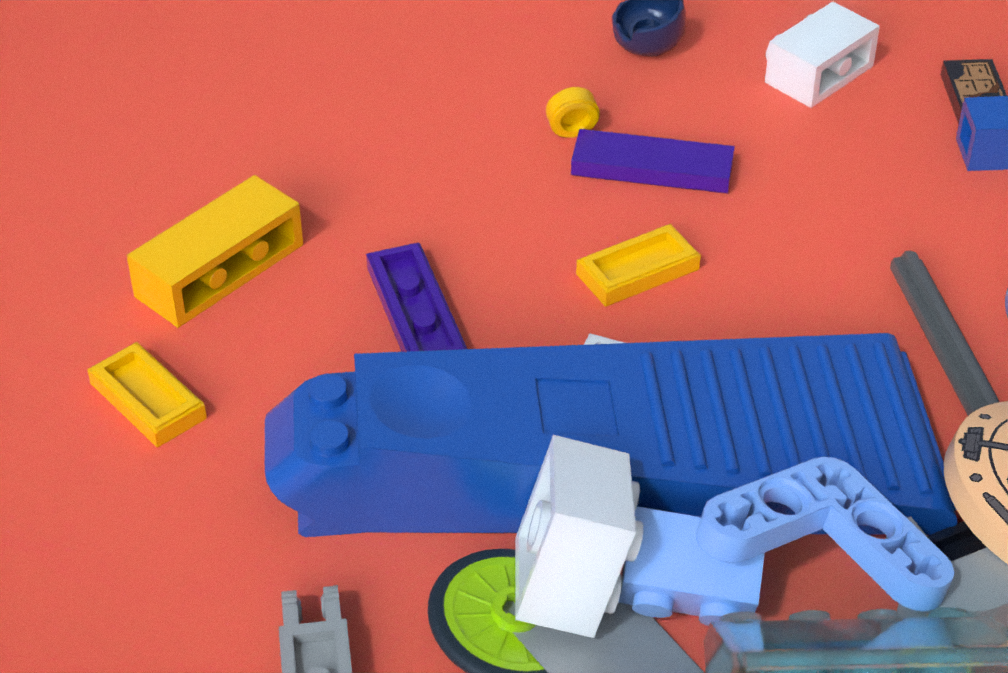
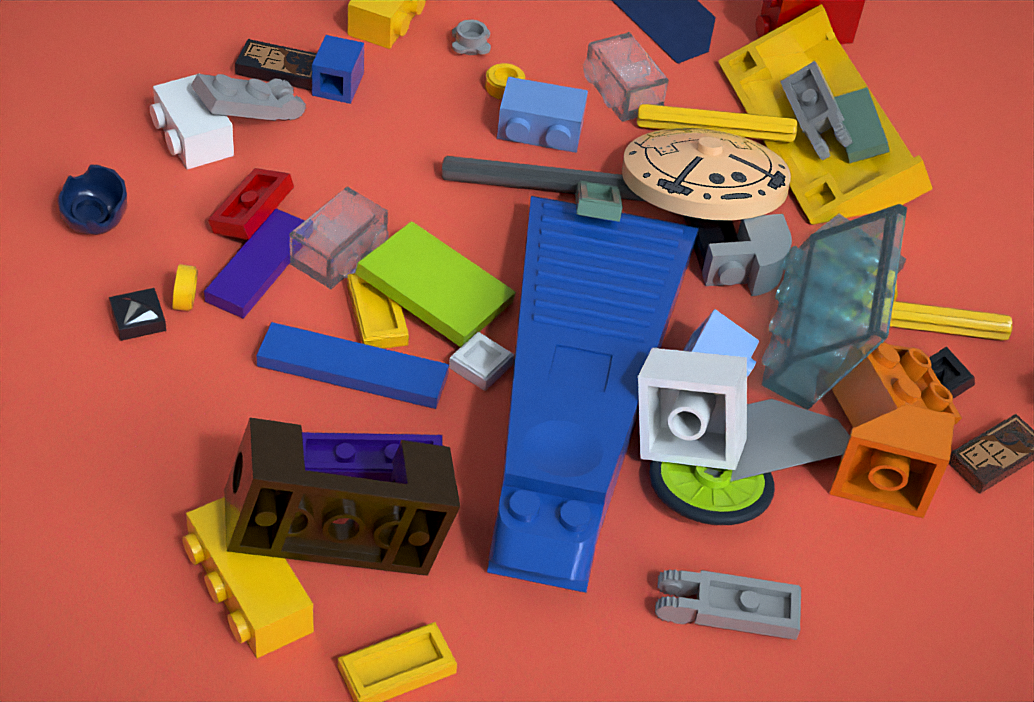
camera: 80 degrees left, 5 degrees up
(298, 318) = (290, 511): none -> dark brown plate
(524, 99) = (137, 314): none -> black tile
(541, 266) = (353, 365): none -> blue tile
(695, 283) = (435, 283): none -> lime tile
(717, 199) = (338, 237): none -> clear brick
(745, 128) = (251, 203): none -> red plate
(838, 500) = (706, 270): light blue beam -> none
(877, 73) = (248, 97): none -> light grey hinge
(916, 391) = (598, 201): none -> sand green tile

